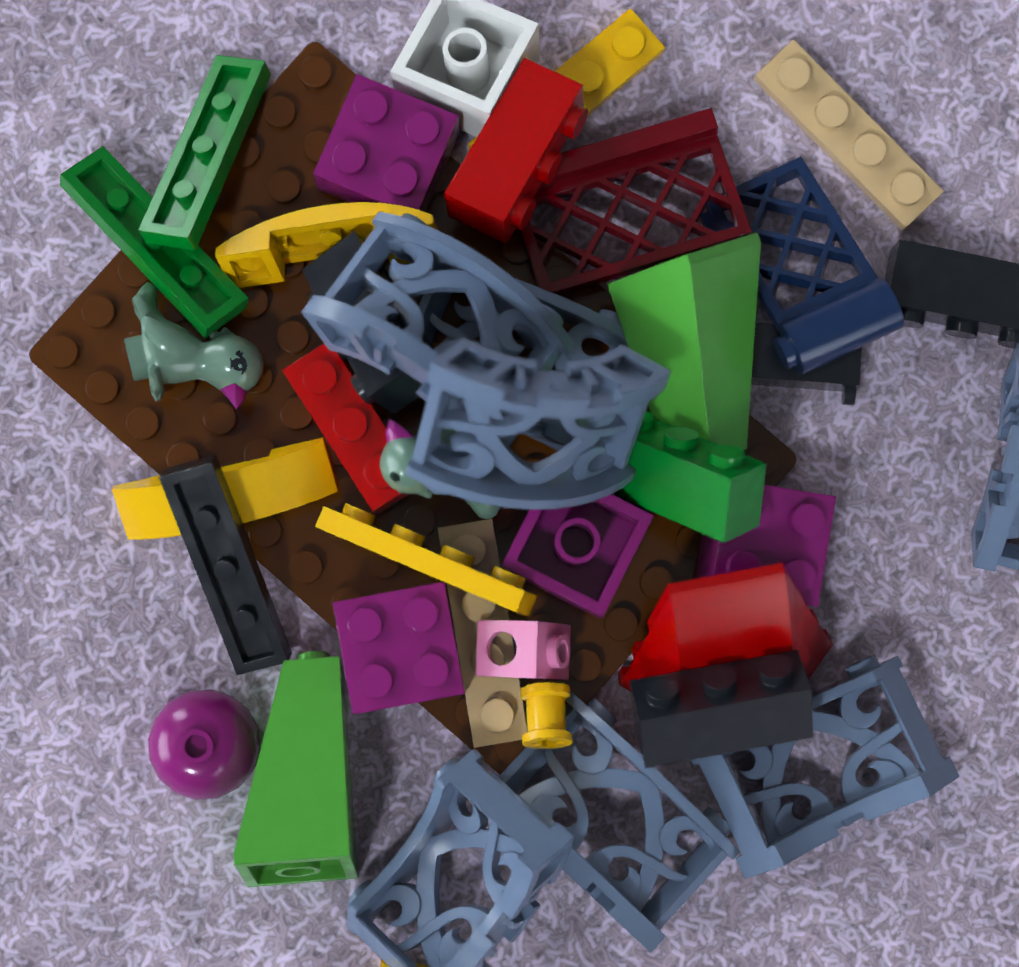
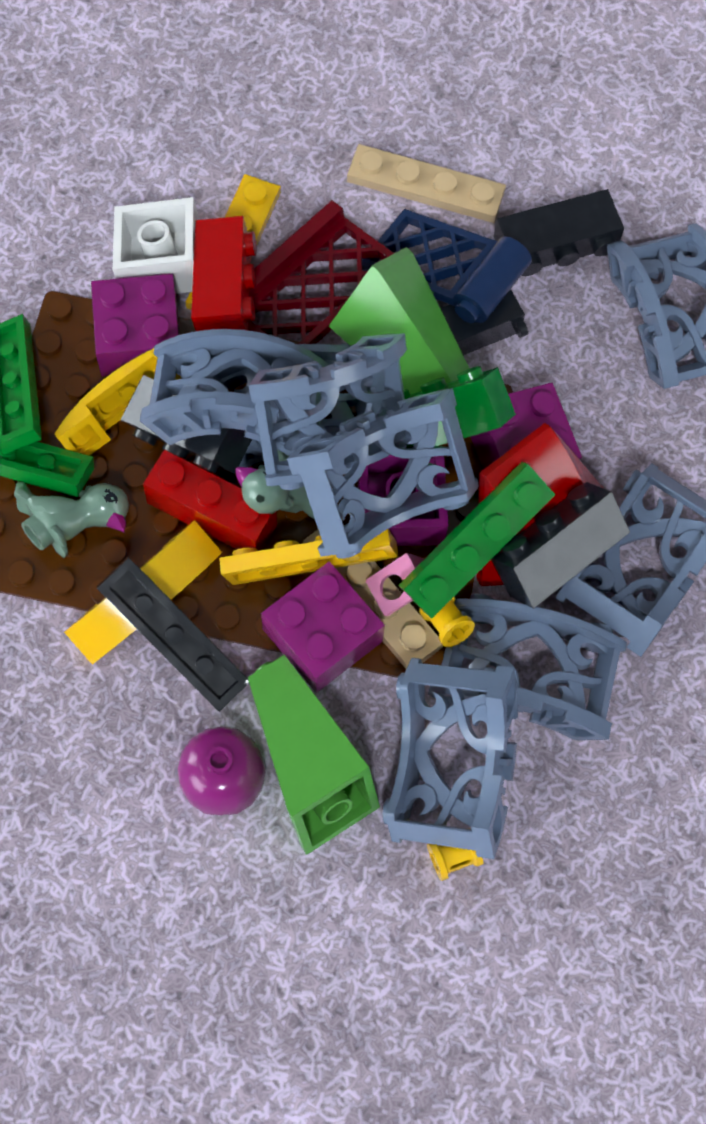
camera: 25 degrees left, 15 degrees down
(582, 568) = (323, 466): none -> sand blue fence
(622, 658) = (477, 539): none -> green plate

